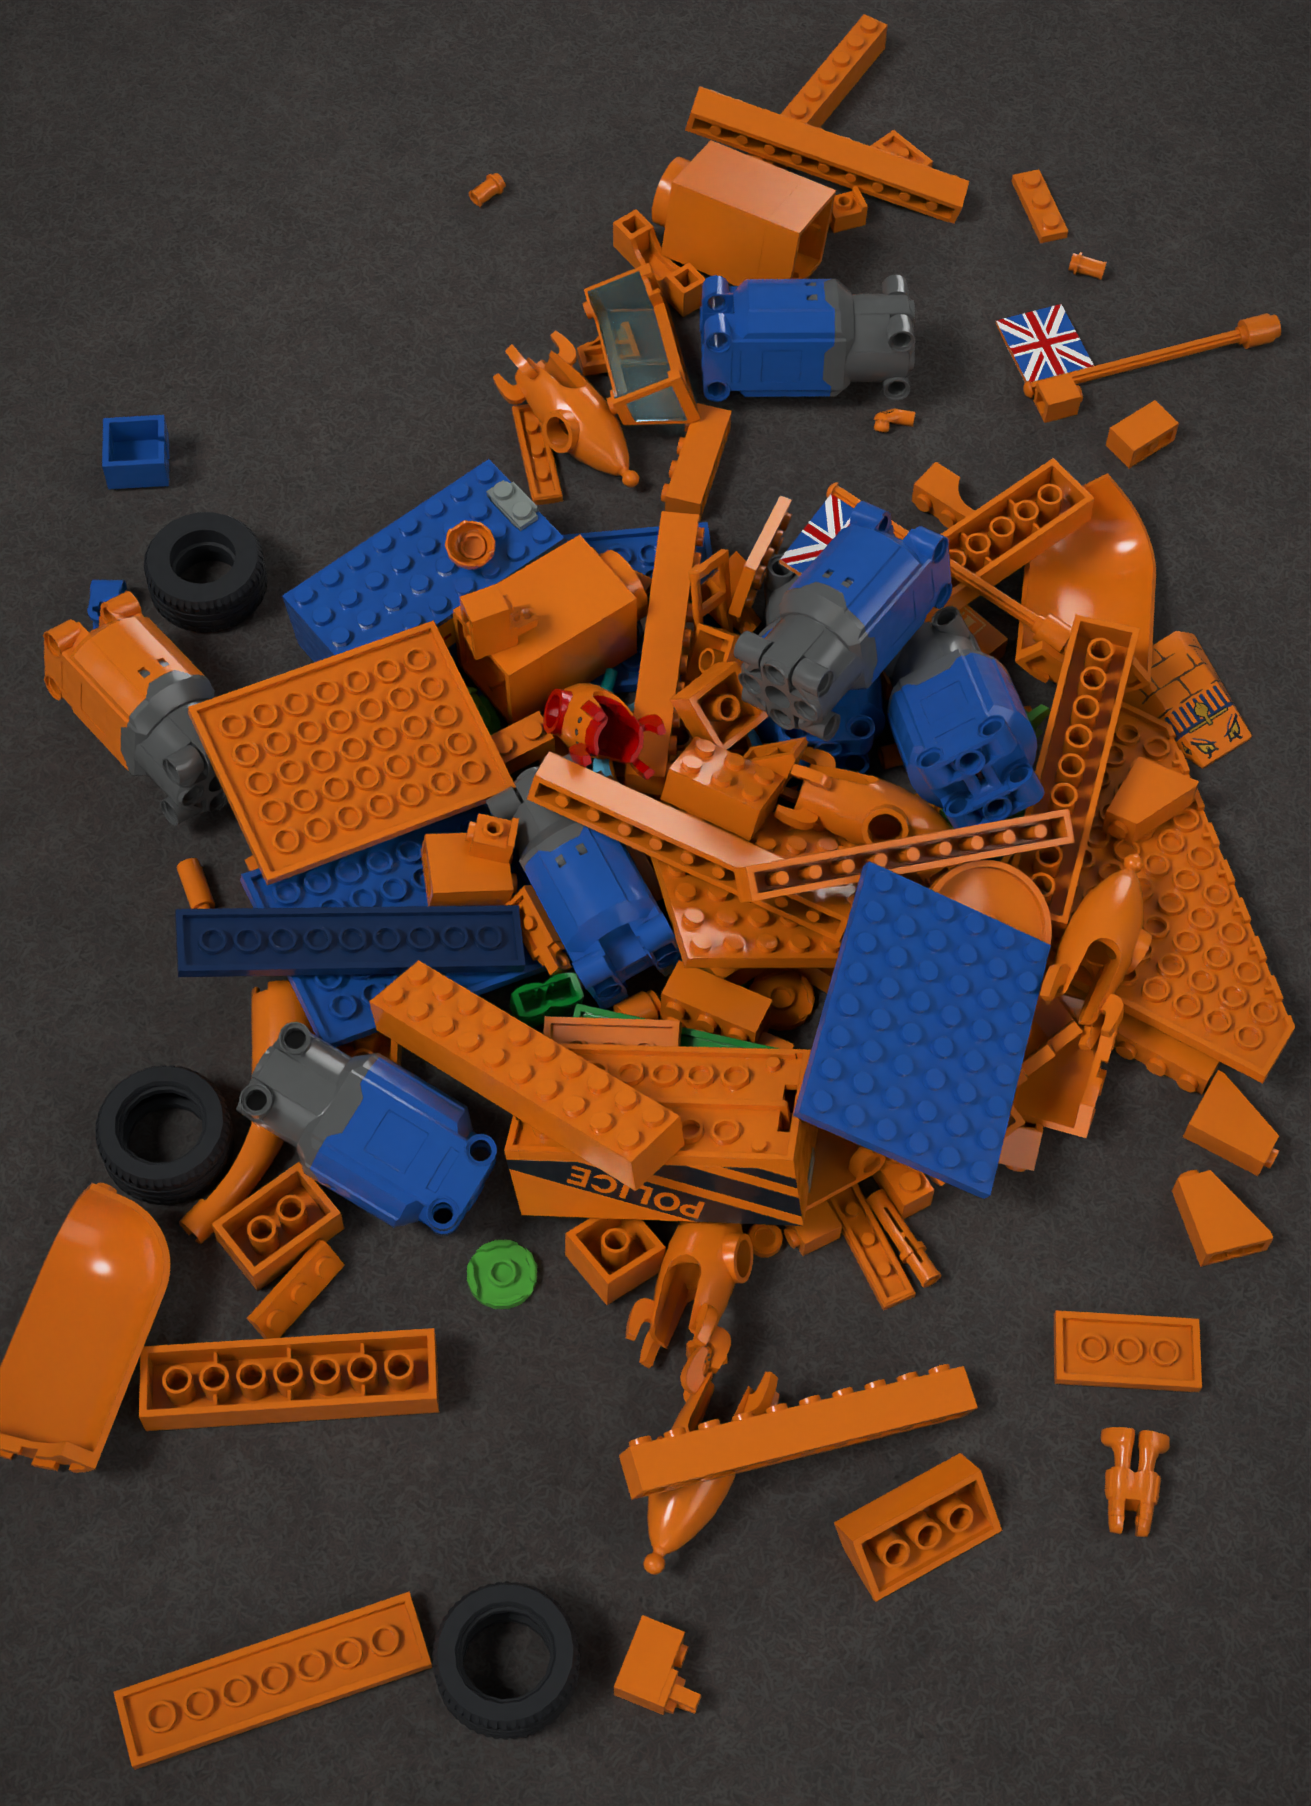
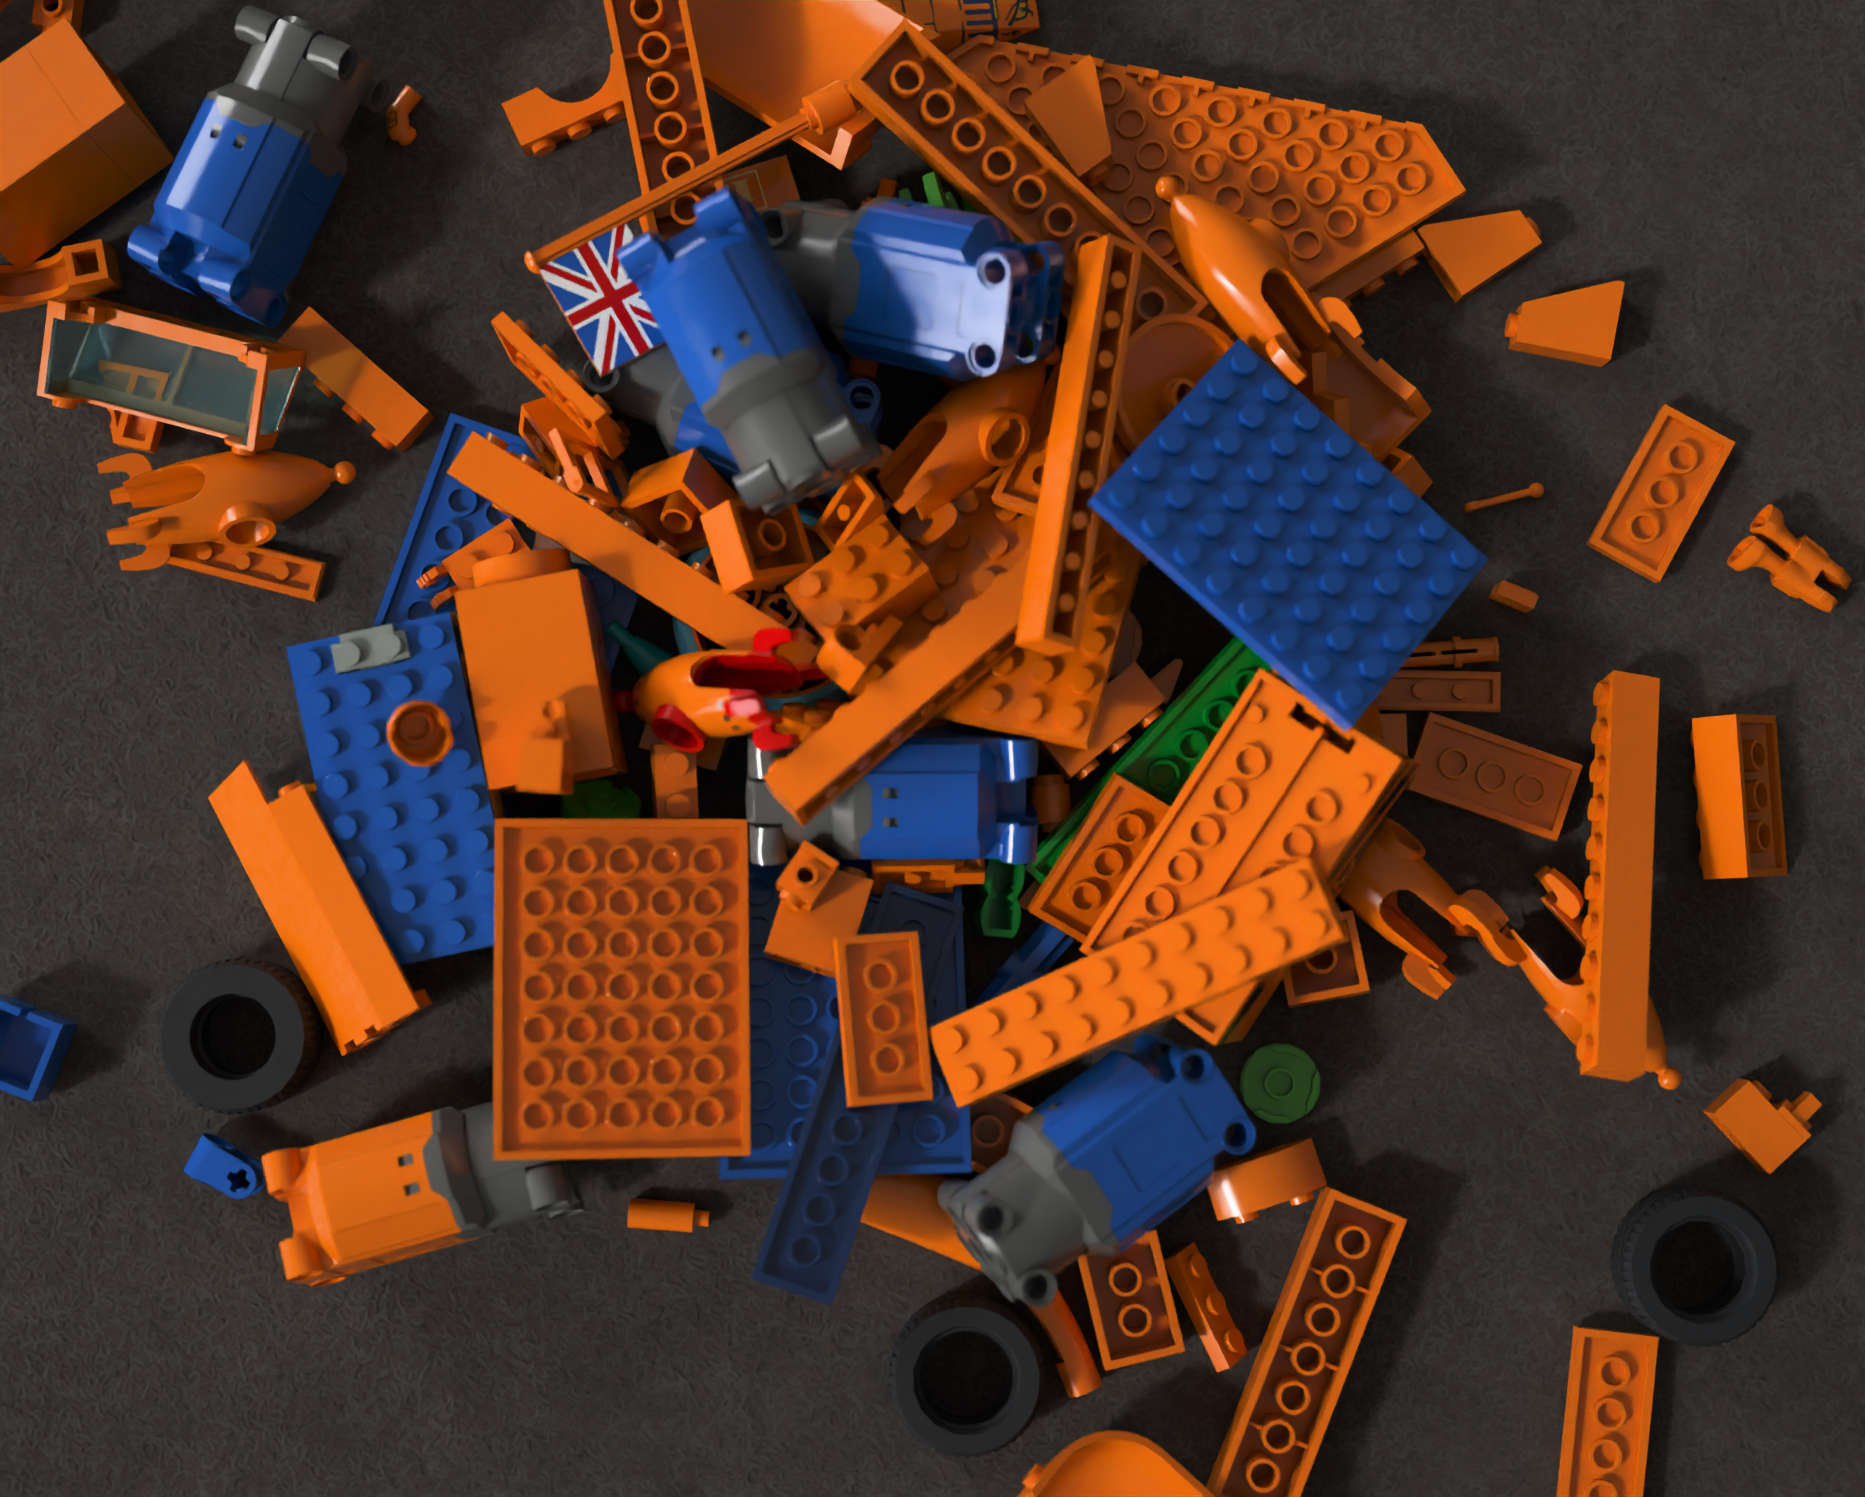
camera: 60 degrees left, 25 degrees up
(265, 619) = (316, 909): none -> orange panel
(411, 926) = (882, 1018): none -> orange plate
(418, 1288) = (1266, 1180): none -> orange brick
(669, 783) = (852, 651): none -> orange plate
(828, 1322) = (1493, 776): none -> orange plate
(980, 1273) = (1514, 596): none -> orange tile
(1074, 1259) = (1535, 490): none -> orange hinge

